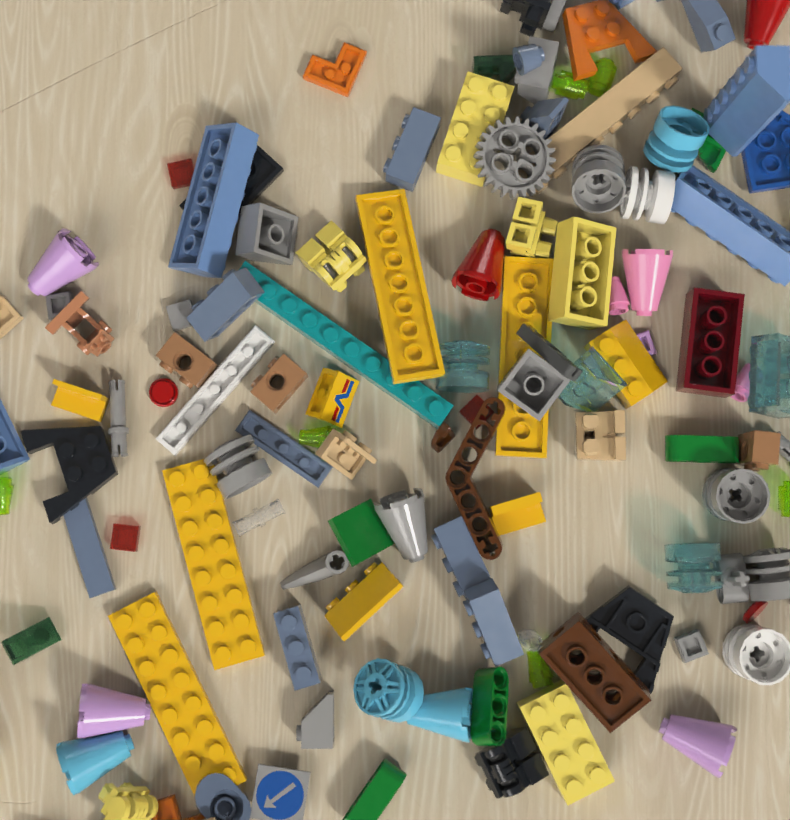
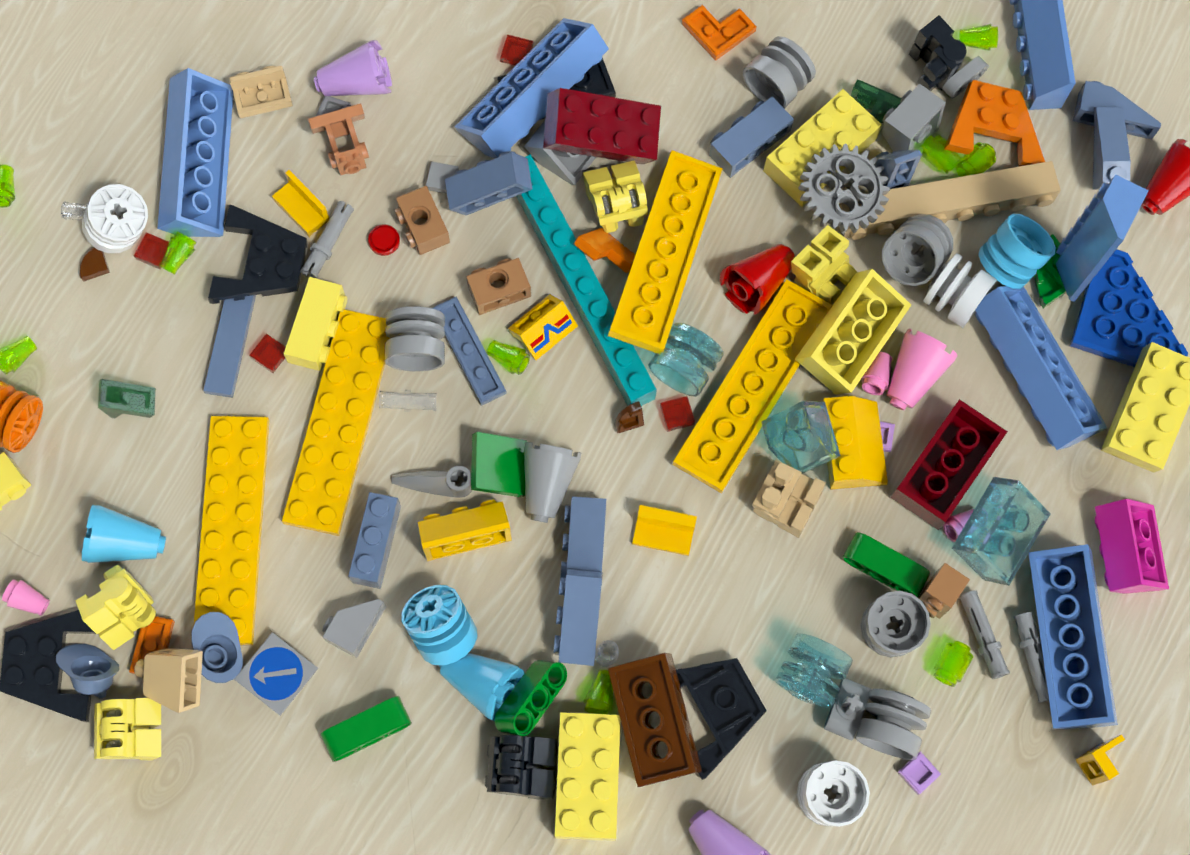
camera: 30 degrees right, 10 degrees down
(109, 711) = (160, 502): lavender cone -> none
(149, 494) = (315, 324): none -> light yellow brick
(215, 390) = (434, 262): white tile -> none
(291, 207) = (601, 126): none -> dark red brick
(343, 453) = (524, 380): tan bracket -> none
(344, 304) = (602, 244): none -> orange tile
(408, 82) = (779, 71): none -> light grey wheel
(468, 484) = (638, 460): reddish brown beam -> none
(527, 58) = (905, 100): sand blue hat -> none
(533, 384) = (745, 406): light grey slope -> none
(549, 352) = (777, 383): dark grey piece -> none
(691, 645) = (770, 756): light grey tile -> none
(754, 610) = (856, 754): red piece -> none

